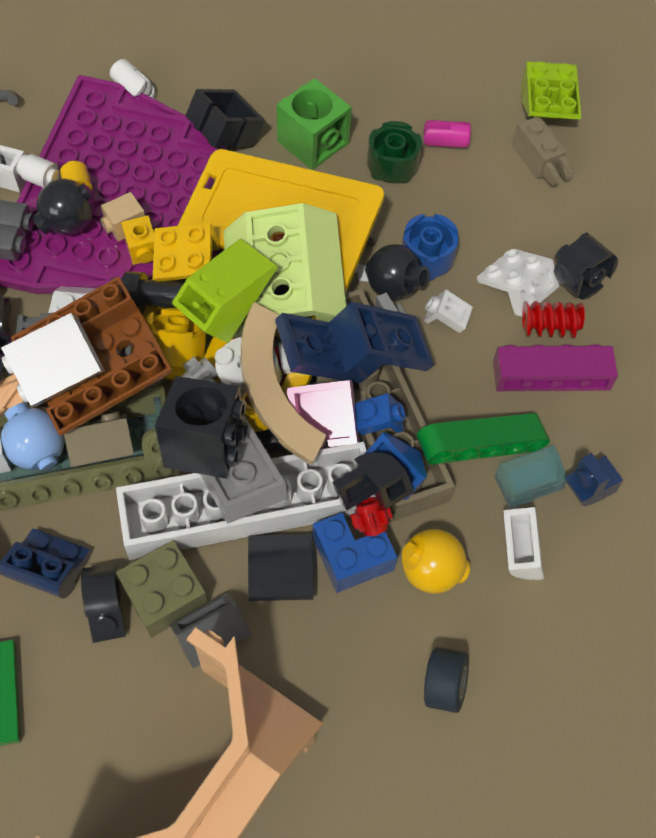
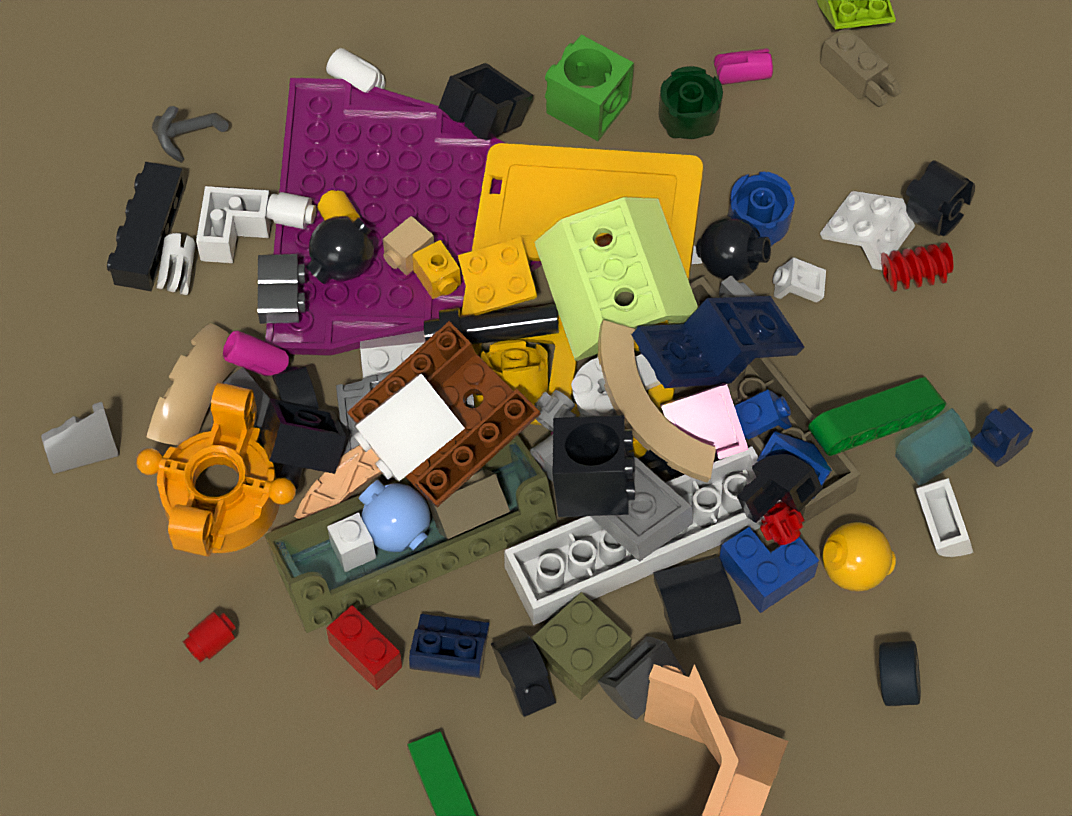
camera: 10 degrees left, 0 degrees up
(225, 289) = (566, 310): lime slope -> none
(555, 368) = (932, 322): magenta brick -> none

